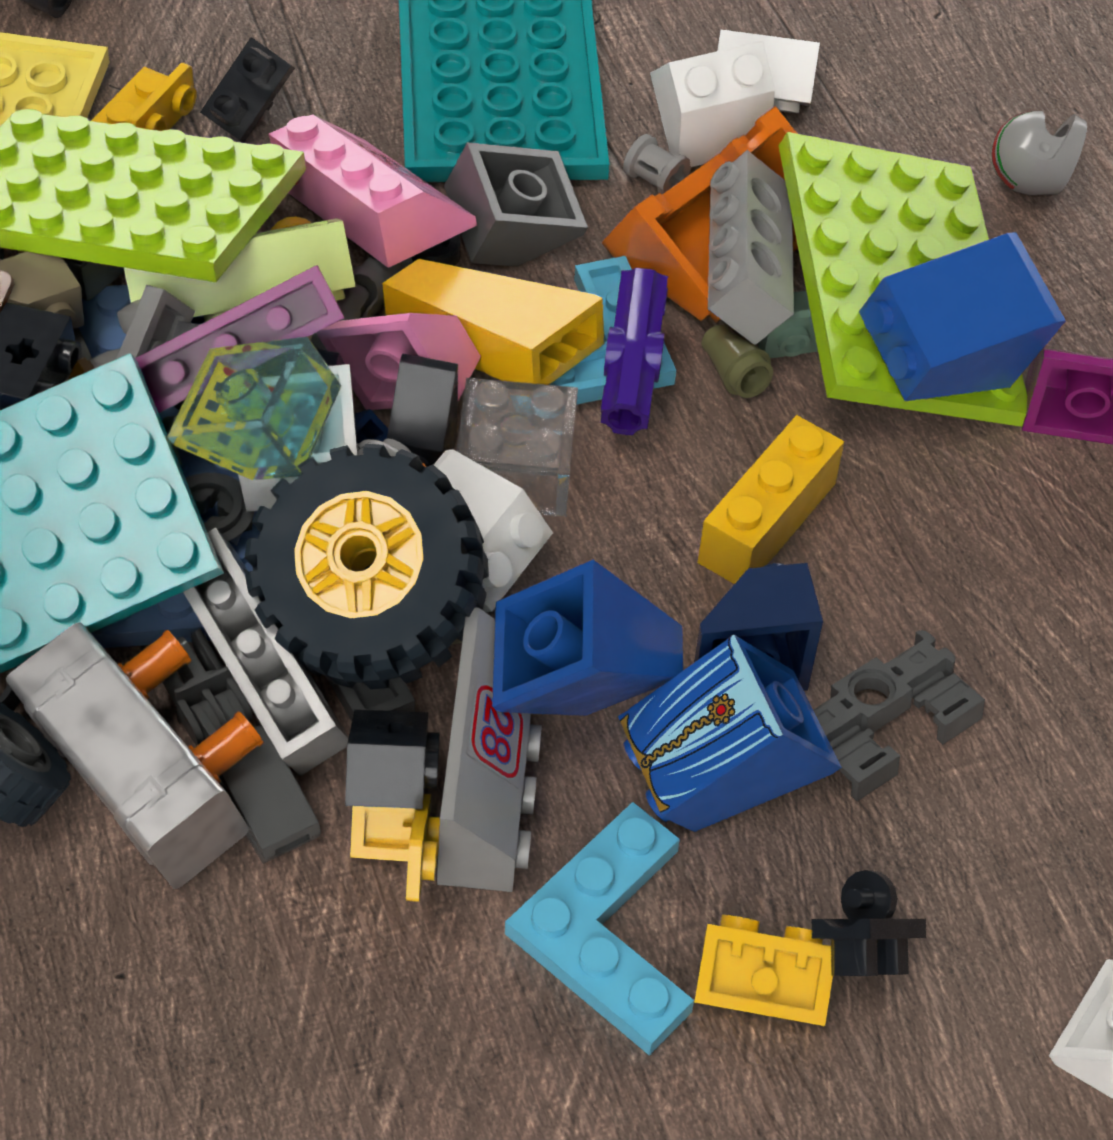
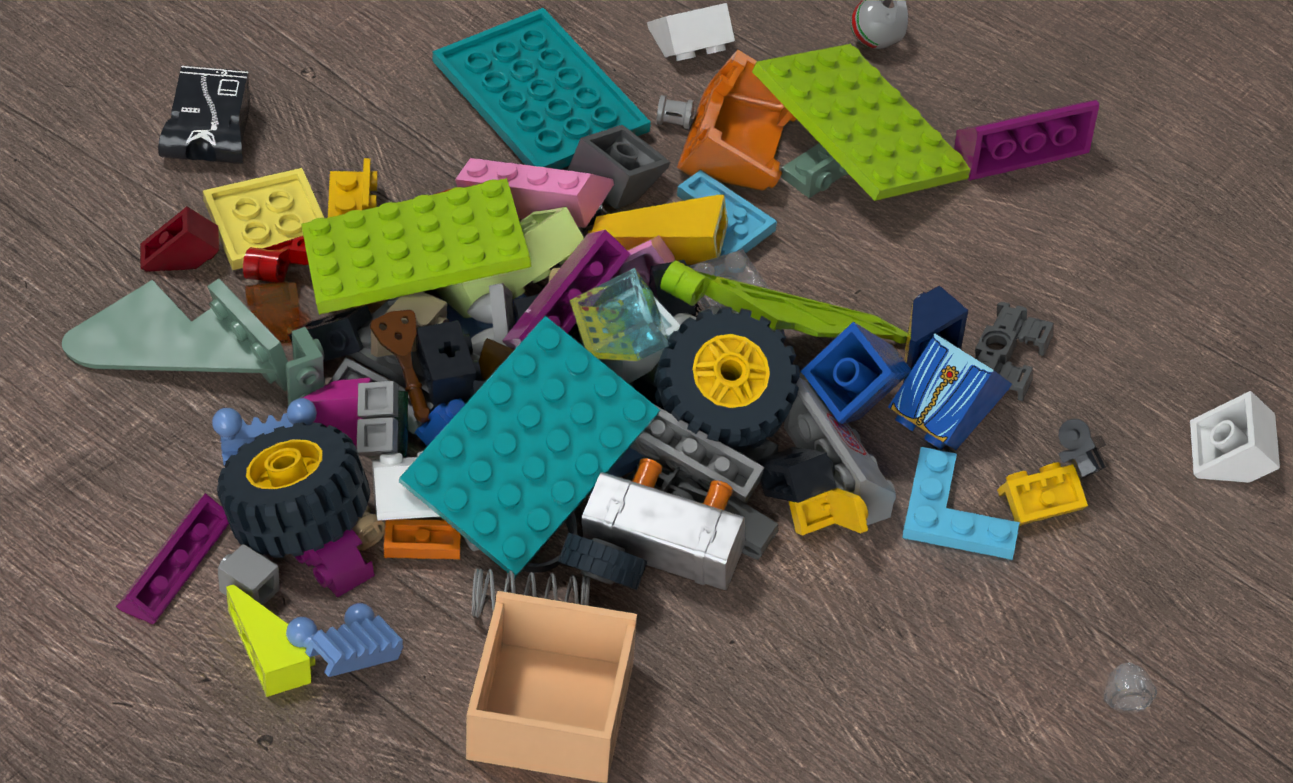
camera: 30 degrees left, 5 degrees down
(247, 90) = (411, 159): black hips -> none
(550, 496) = (780, 308): none -> lime wing
(634, 351) = (756, 218): dark purple piece -> none
(712, 99) = (688, 59): white slope -> none
(739, 363) = (804, 204): olive cone -> none
(750, 248) = (774, 135): light grey brick -> none
(770, 500) = (879, 267): yellow brick -> none
(962, 320) = (924, 128): blue slope -> none

